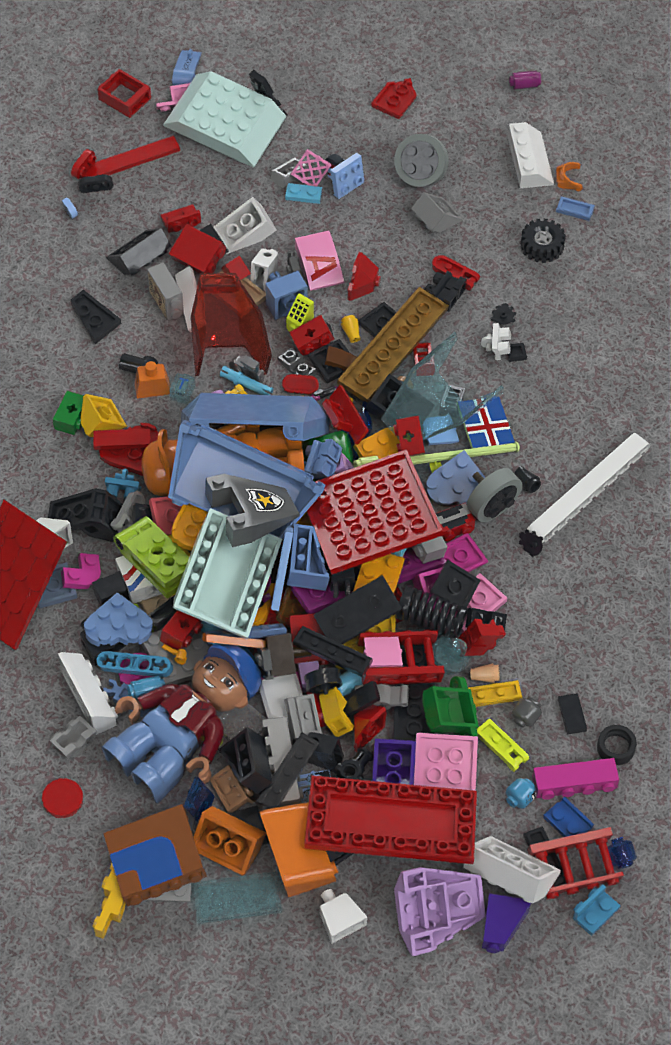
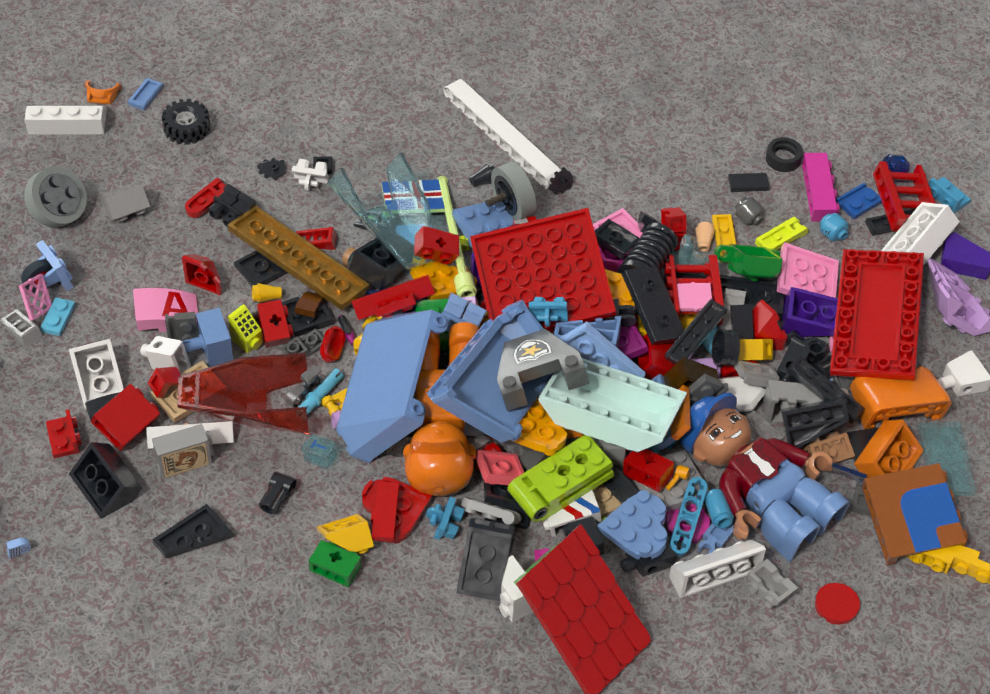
camera: 85 degrees left, 5 degrees down
(152, 380) = (307, 472): orange torso -> none
(319, 514) = (549, 311): none -> dark azure hips

